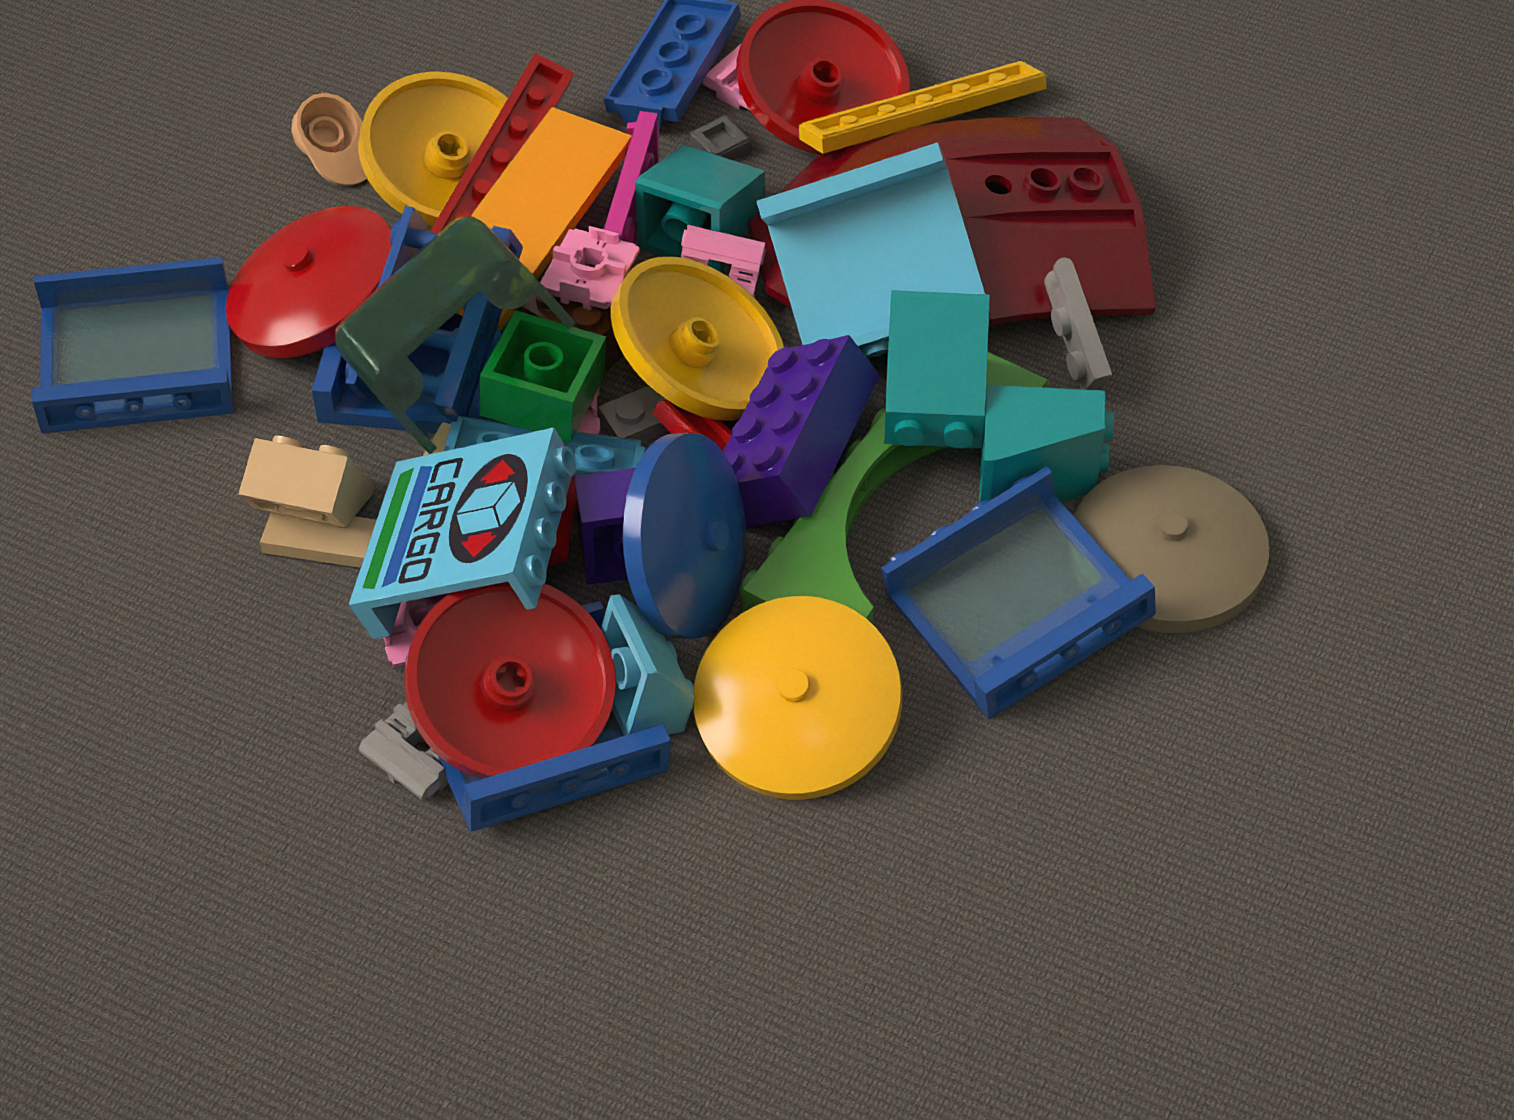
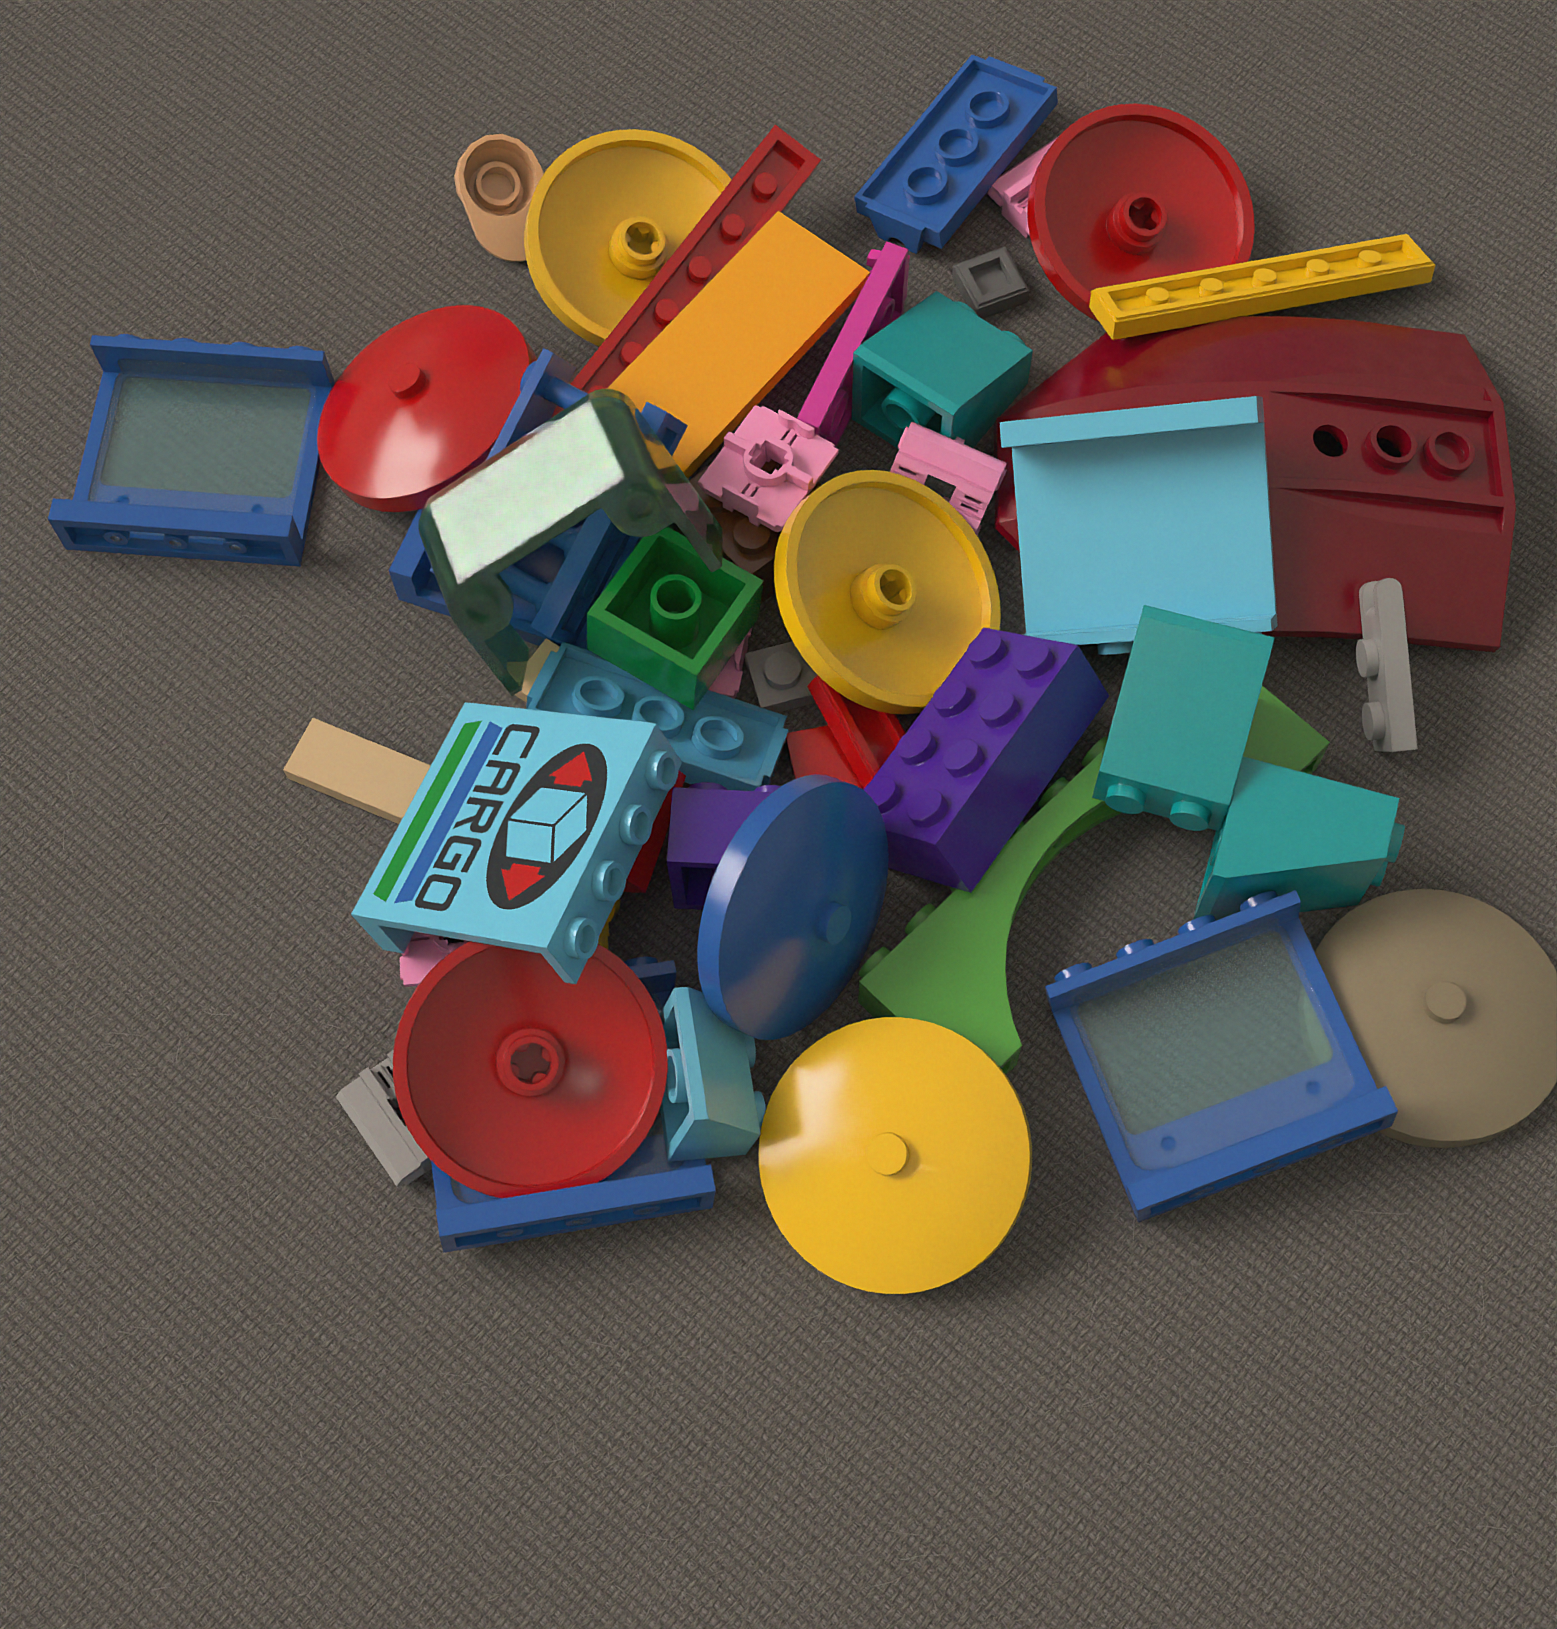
camera: 15 degrees right, 15 degrees up
(304, 481) = (349, 707): tan slope -> none

